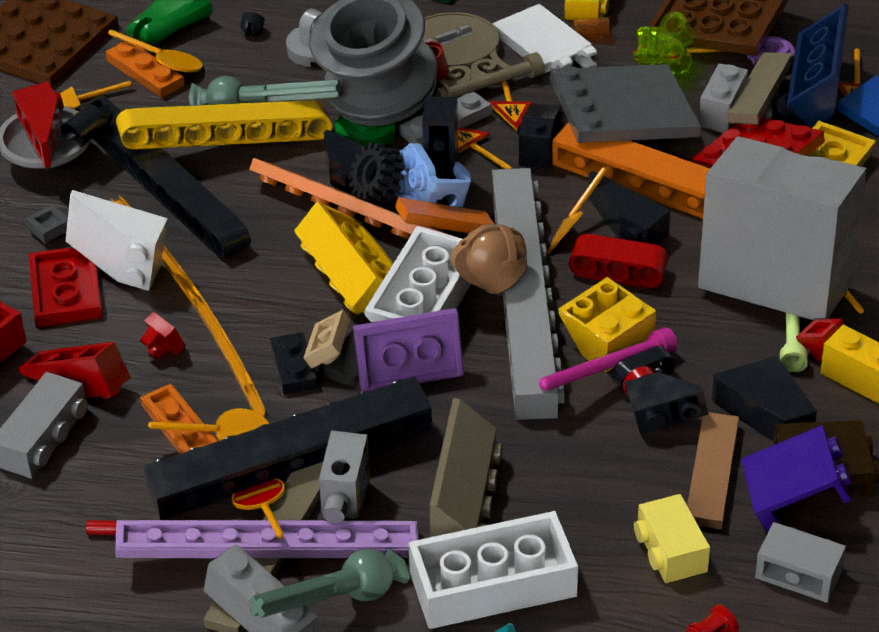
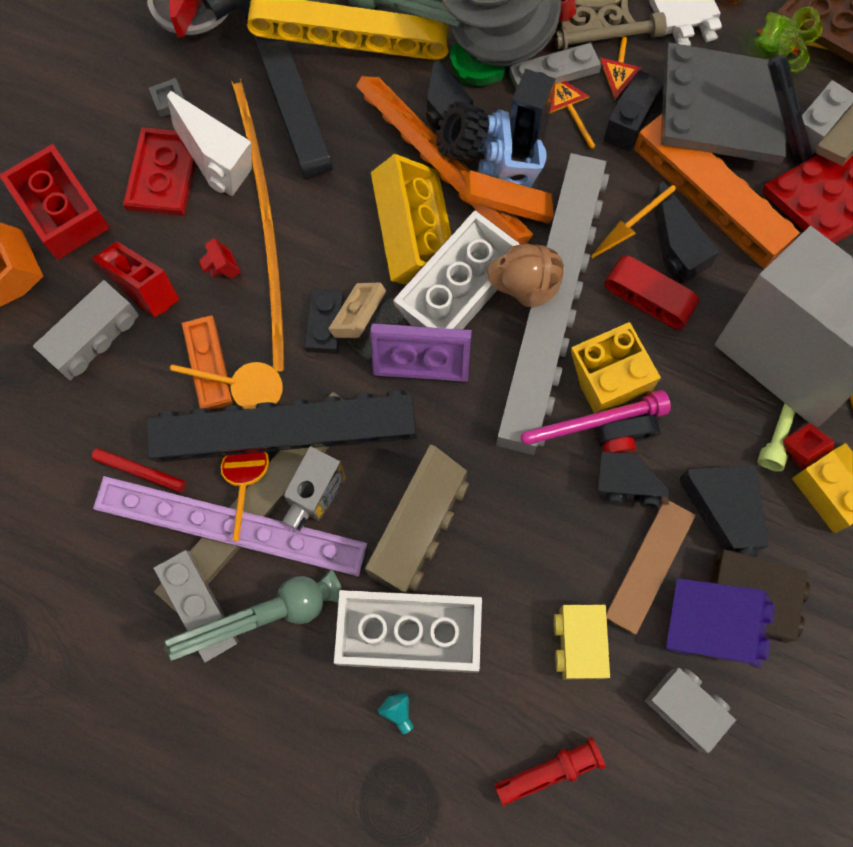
camera: 20 degrees right, 30 degrees up
(688, 87) = (789, 108): none -> black axle

